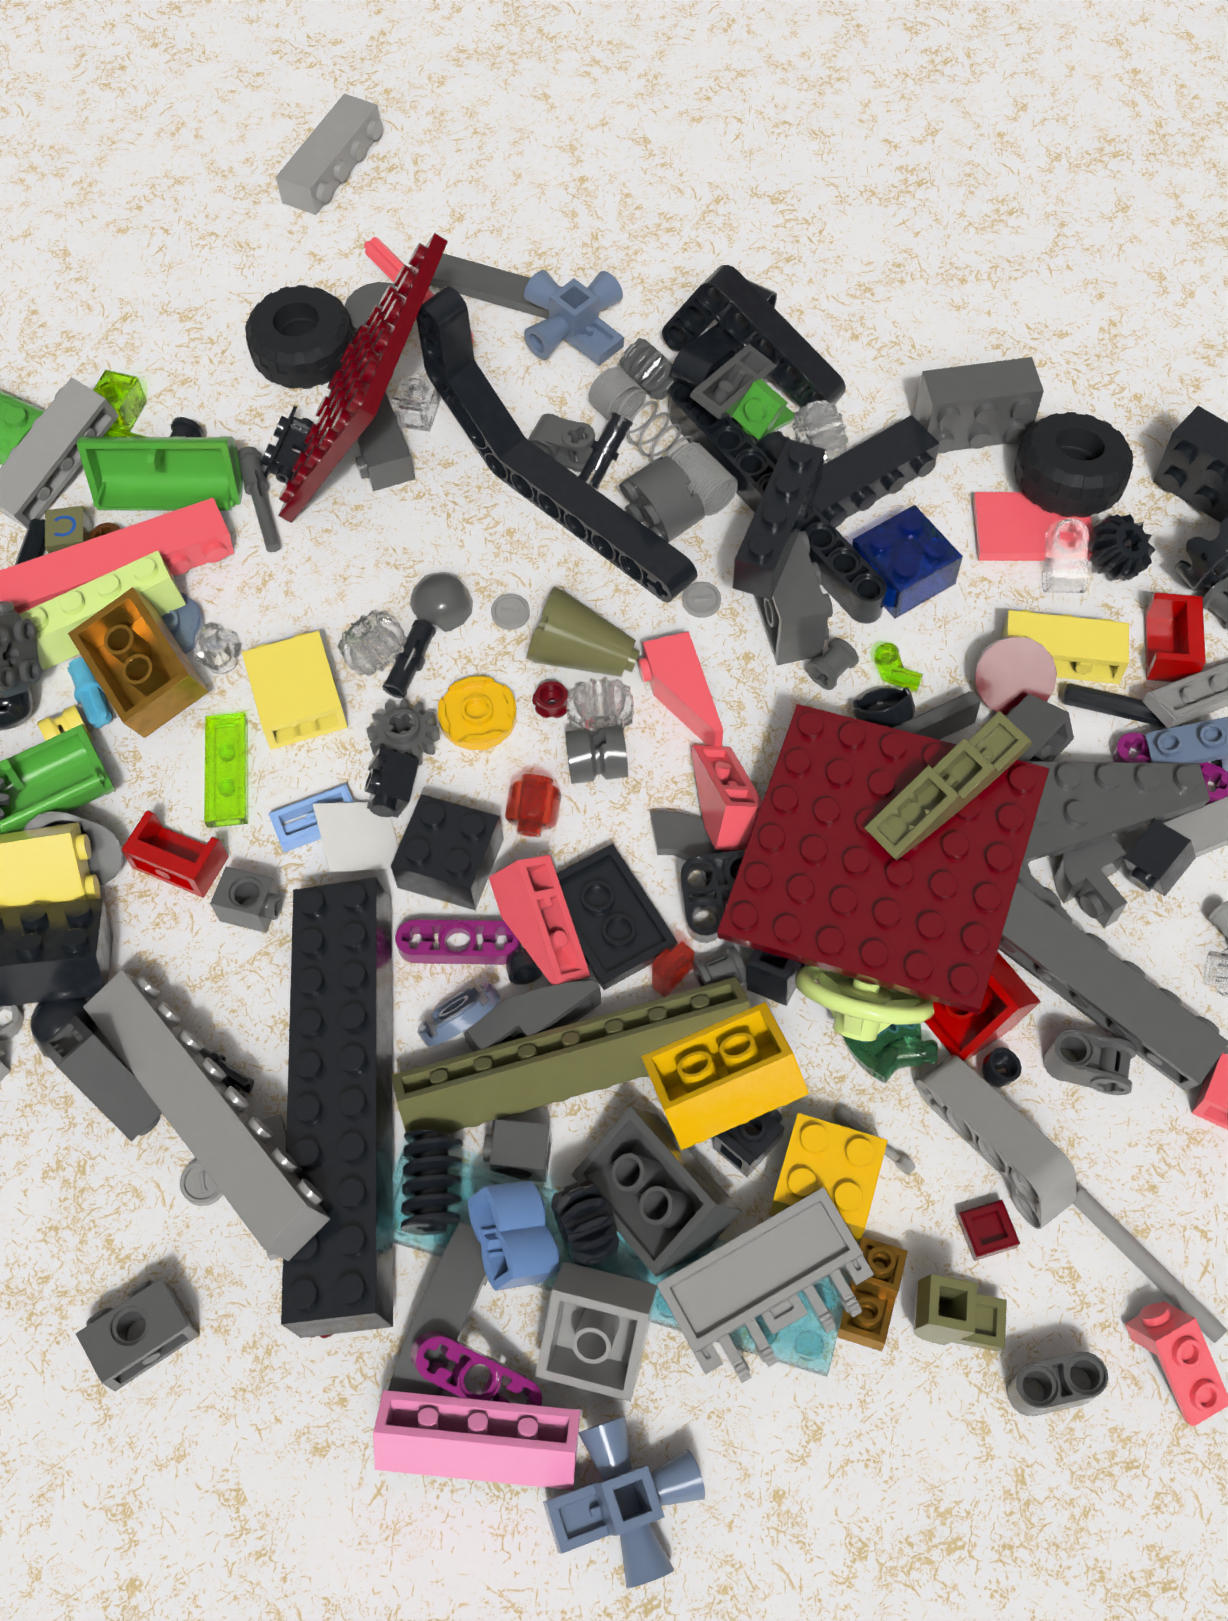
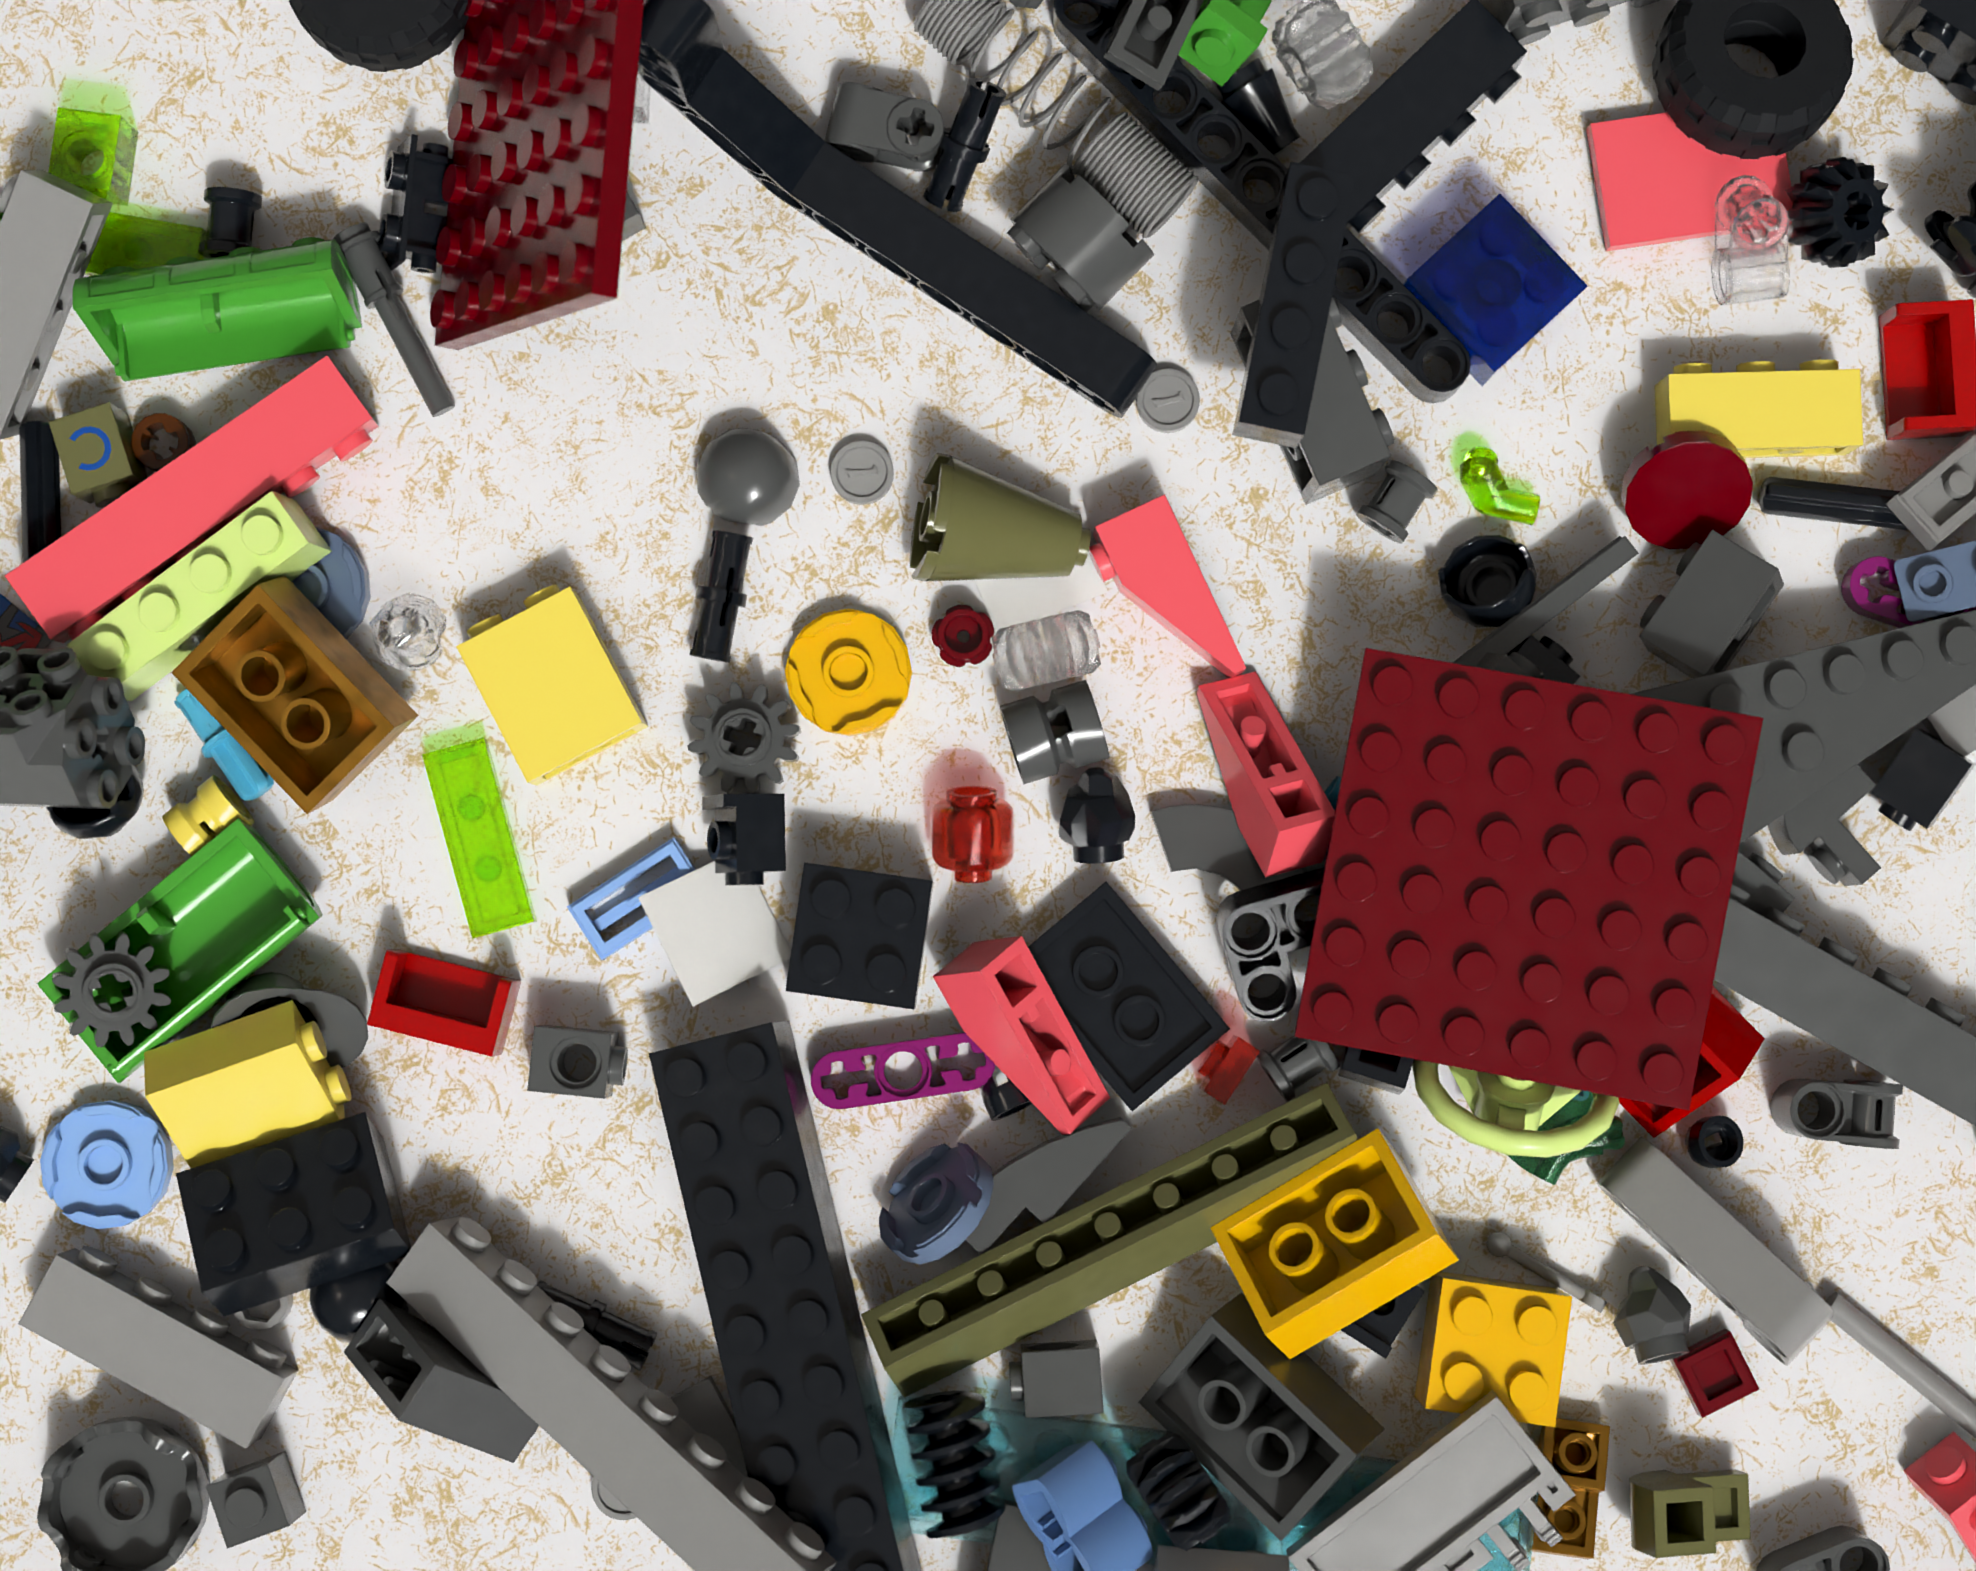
camera: 15 degrees left, 25 degrees up
(372, 642) = (659, 588): clear gear -> none
(614, 808) = (1097, 817): none -> black rock
(946, 1178) = (1653, 1317): none -> dark grey rock
(948, 786) = (1618, 781): olive slope -> none

